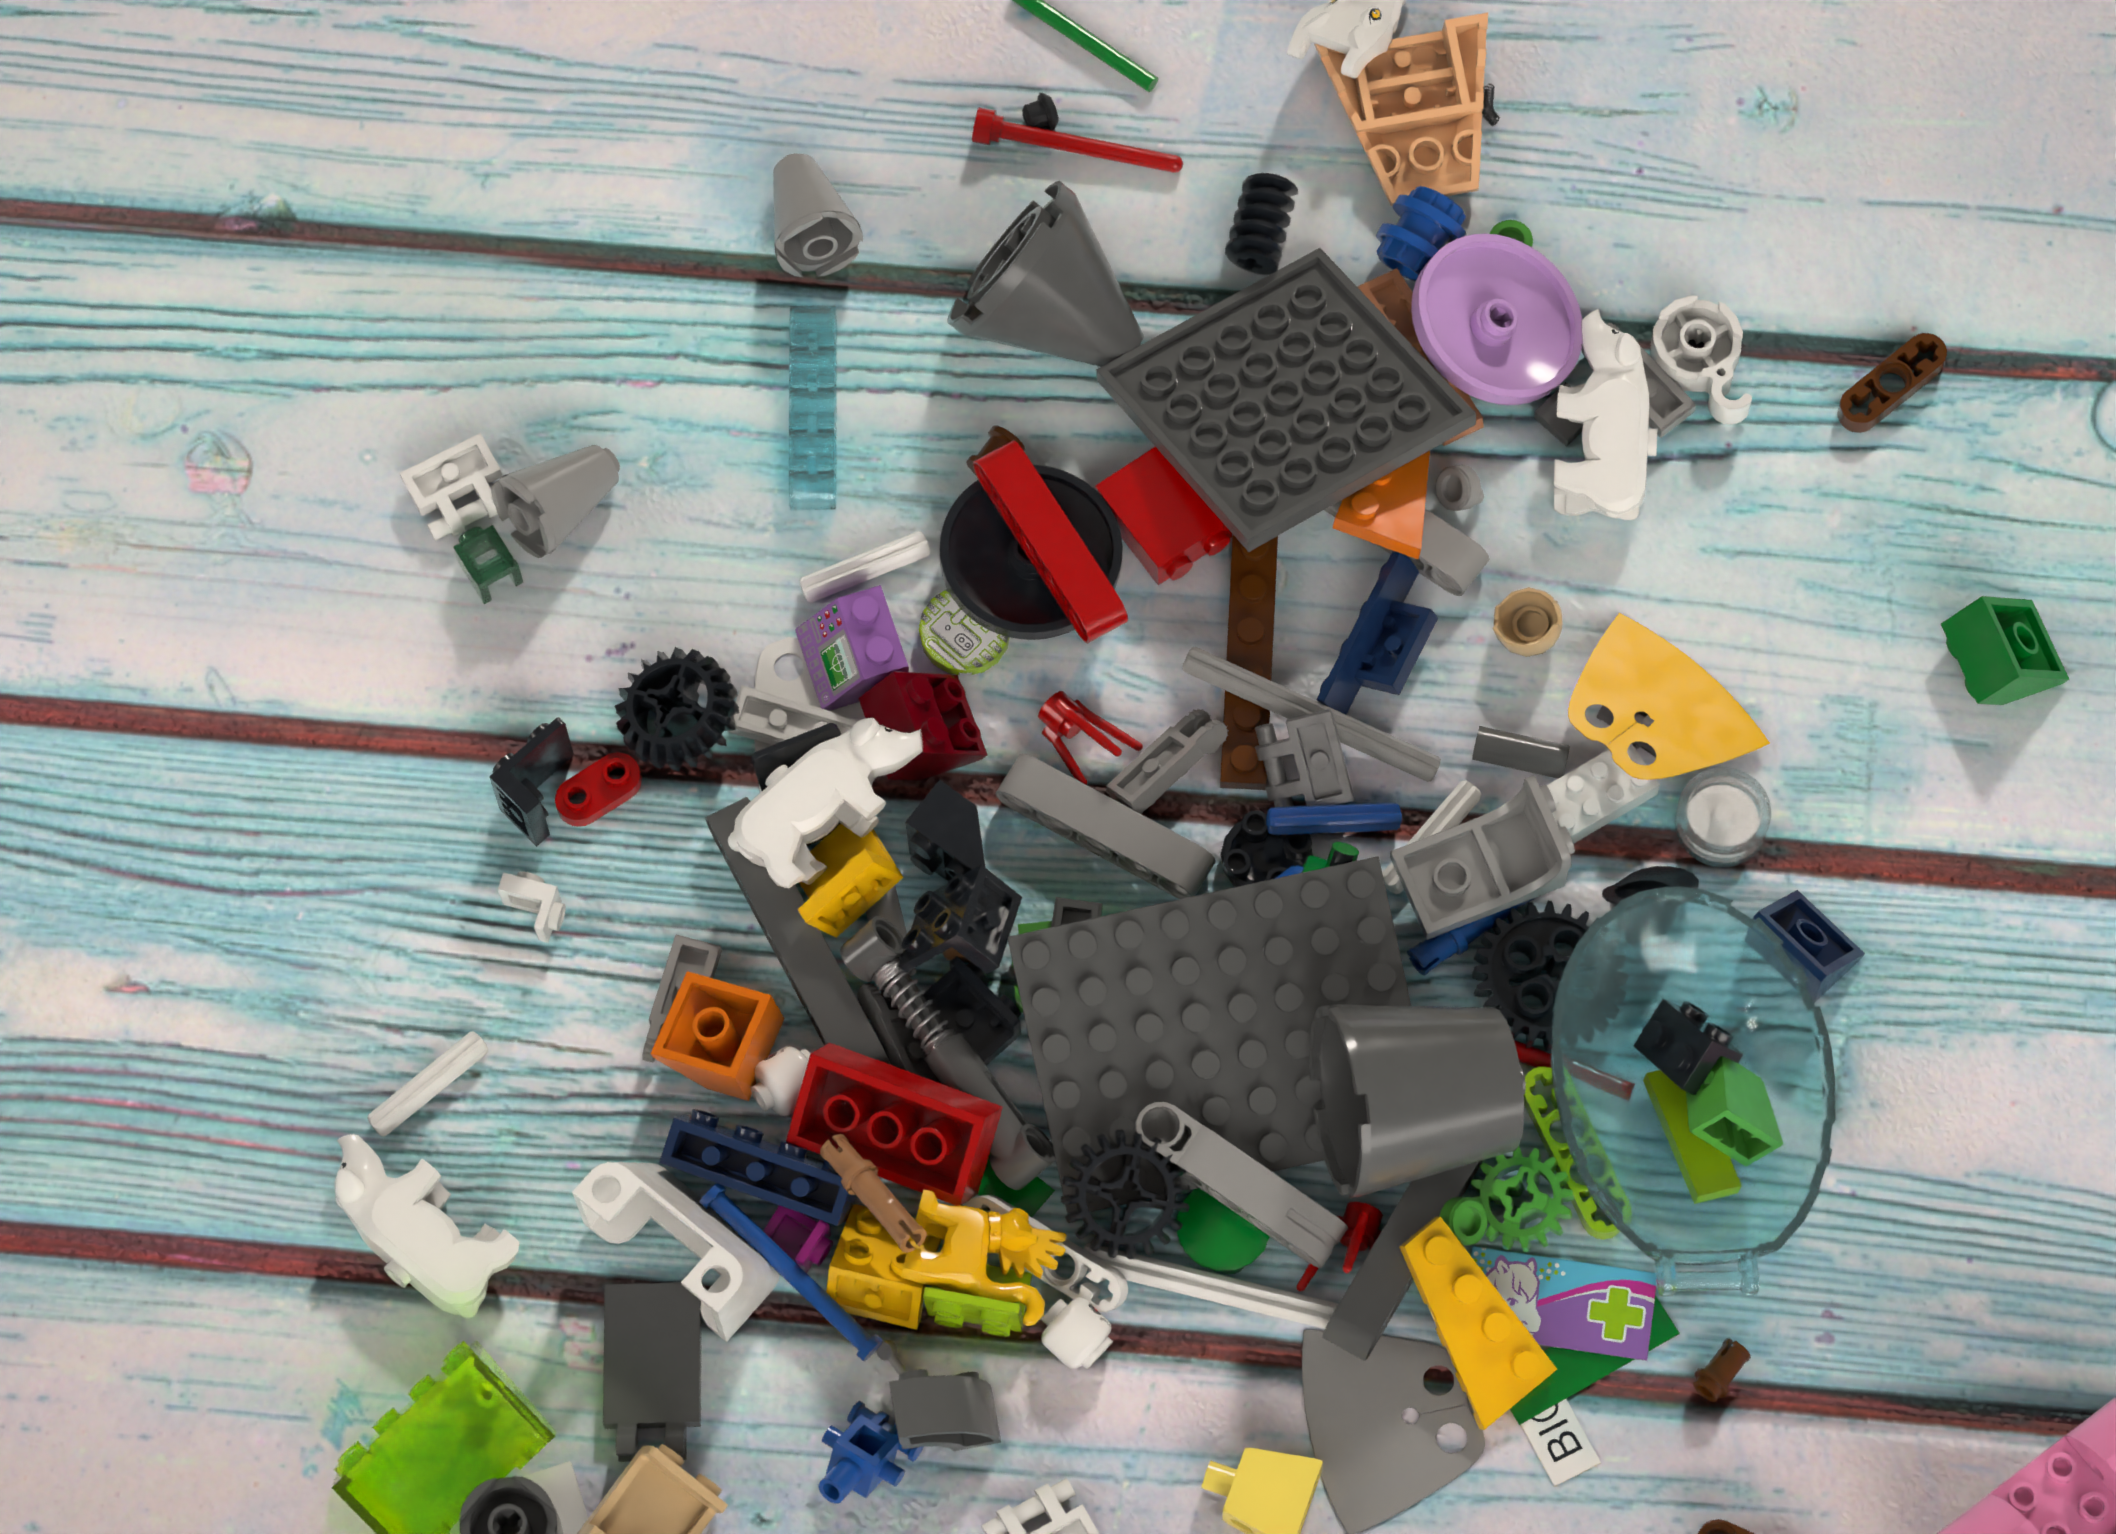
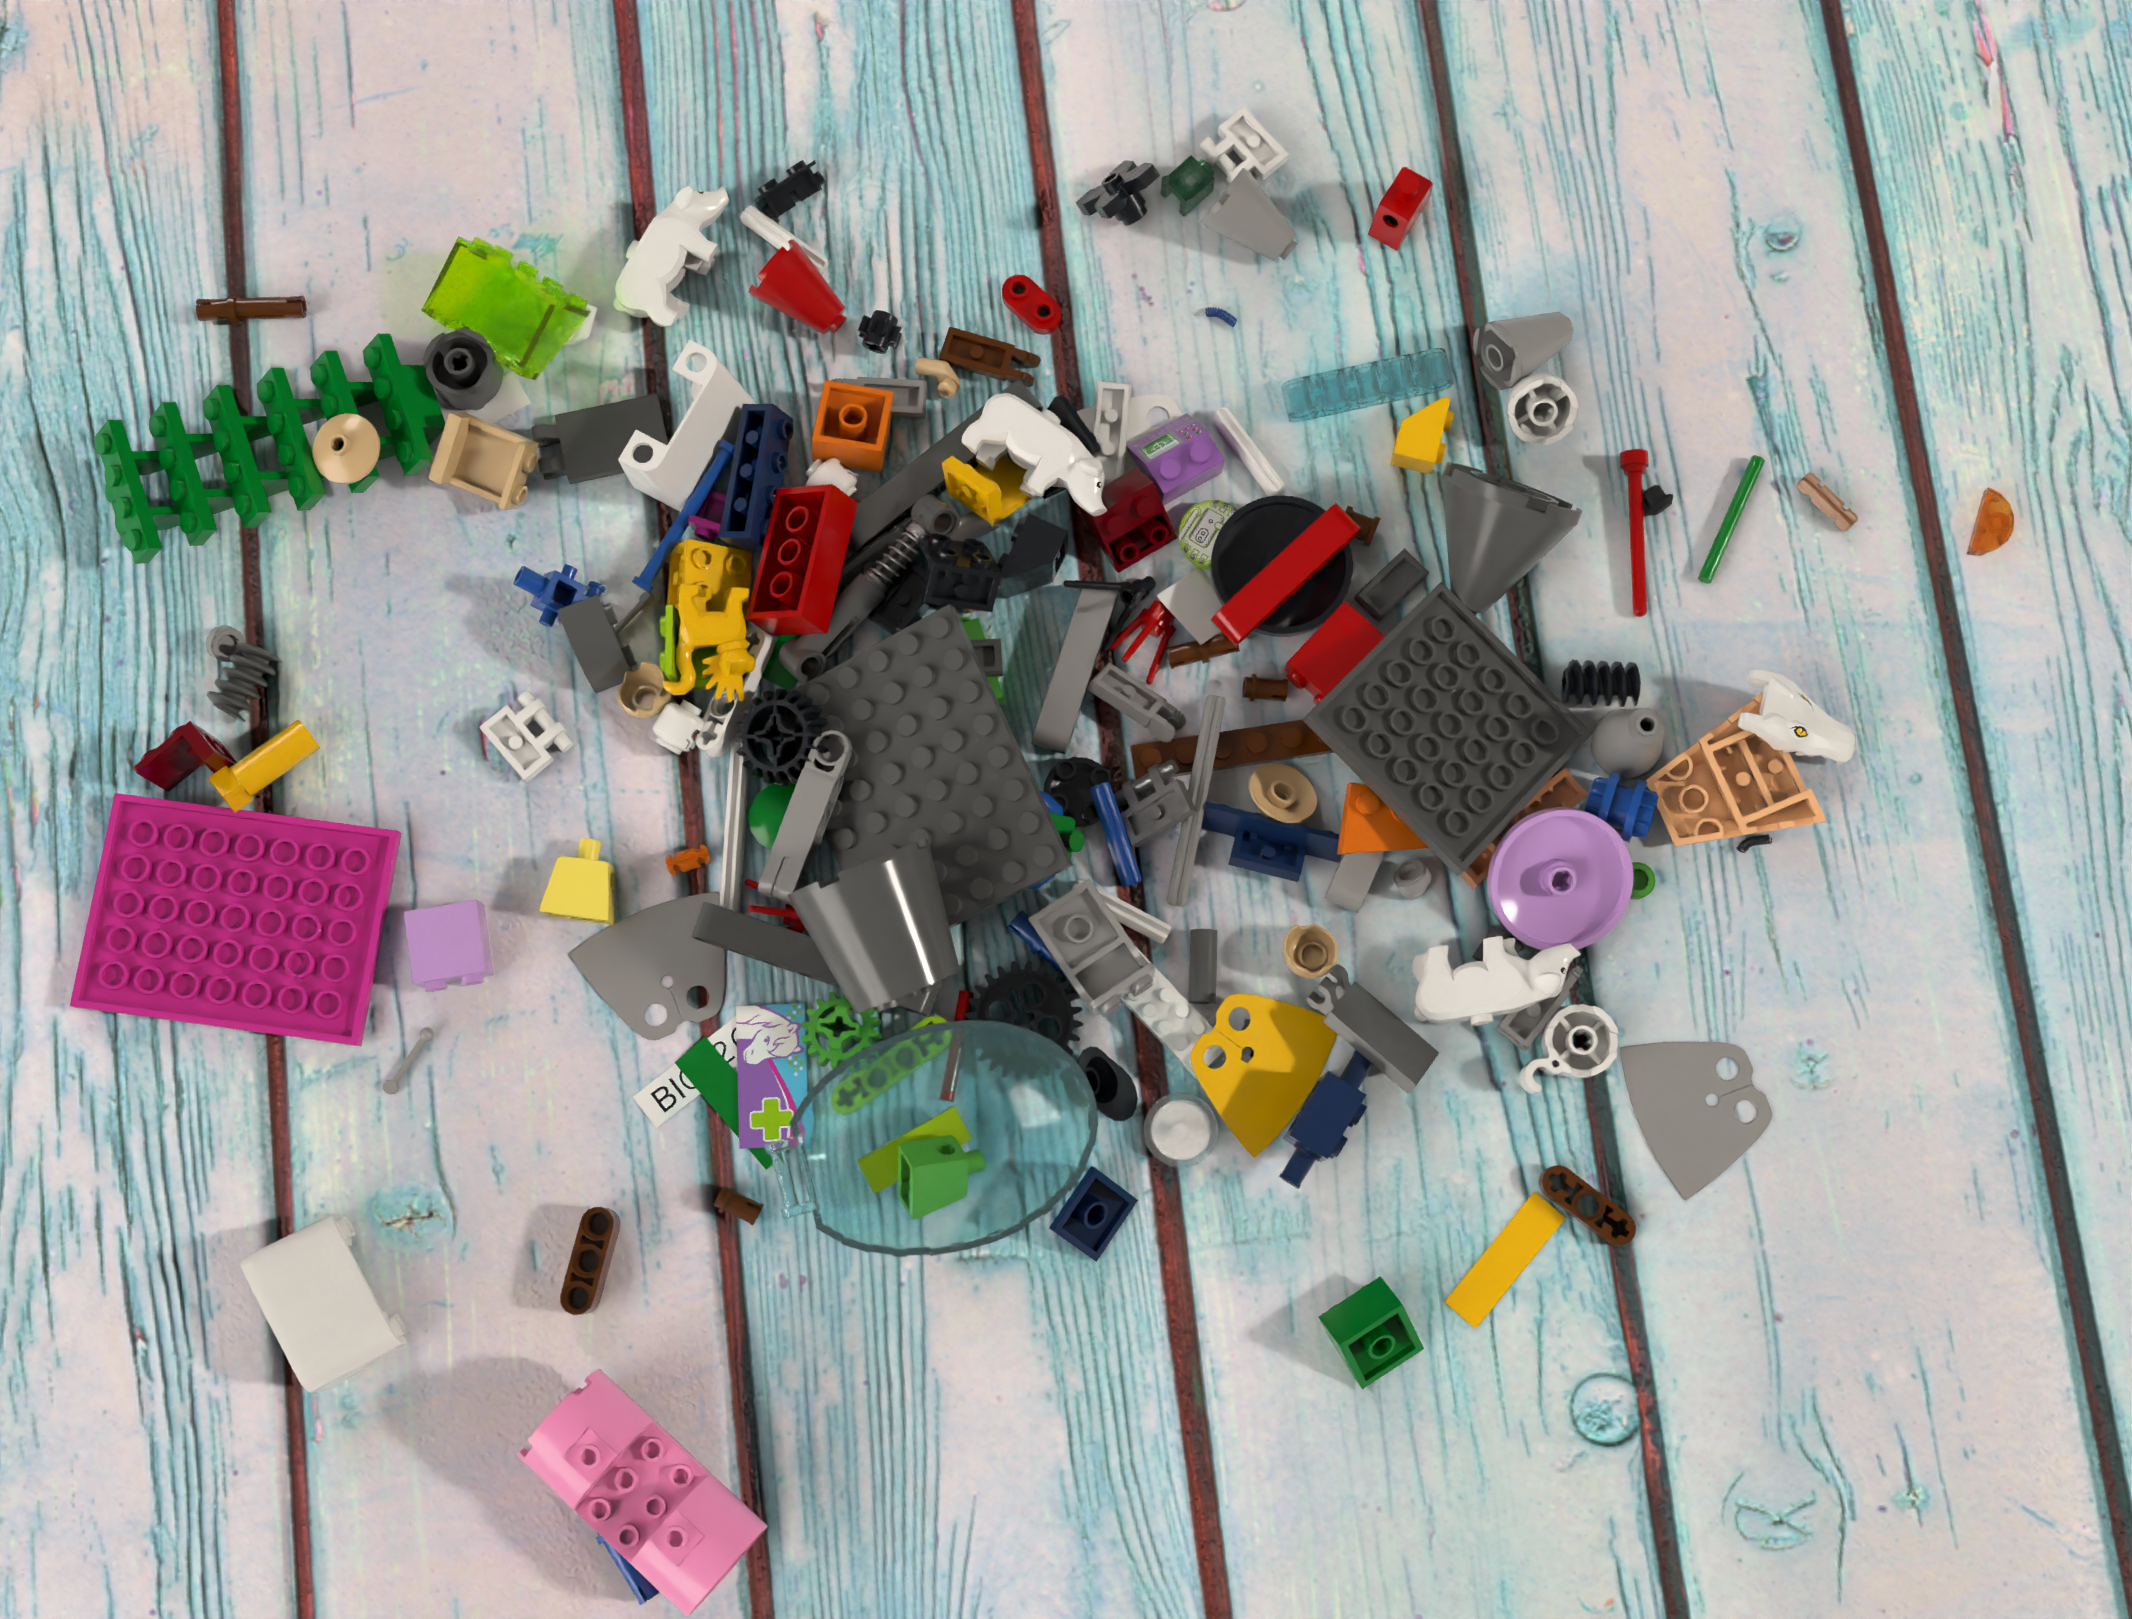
camera: 75 degrees right, 10 degrees up
(347, 1045) = (777, 195): none -> black hinge
(480, 643) = (1120, 193): none -> black plant
(509, 1070) = (799, 290): none -> red cone
(520, 774) = (1014, 238): black bracket -> none
(533, 895) = (932, 289): white bracket -> none
(586, 306) = (1405, 203): none -> red torso
(593, 980) = (880, 331): none -> black gear
(658, 857) = (987, 356): none -> reddish brown hinge
(669, 562) = (1212, 313): none -> blue leg
(669, 914) = (942, 371): none -> tan arm
(684, 730) = (1081, 330): black gear -> none
(862, 1179) = (747, 542): medium nougat pin -> none
(899, 209) = (1541, 408): none -> white cylinder
(899, 359) = (1420, 435): none -> yellow slope
(1018, 1367) = (643, 691): none -> tan hair
(1024, 739) = (1130, 594): none -> black plant
(1056, 665) = (1193, 604): none -> white sticker
(1078, 436) = (1391, 585): none -> dark grey tile
(1114, 674) = (1194, 652): none -> reddish brown pin
(1182, 604) = (1264, 688): none -> reddish brown pin
(1255, 1357) = (688, 859): none -> orange piece
(1321, 612) = (1283, 793): none -> tan dish
(1338, 207) = (1628, 741): none -> light grey cone
(1465, 1218) = (809, 988): bright green tile -> none
(1485, 1339) = (729, 1017): yellow wing -> none
(1641, 566) = (1373, 1030): none -> dark grey tile
(1684, 1044) = (975, 1131): black bracket -> none
(1740, 642) = (1324, 1118): none -> dark blue brick
(1820, 261) = (1669, 1100): none -> light grey piece
(1940, 489) = (1504, 1260): none -> yellow sticker

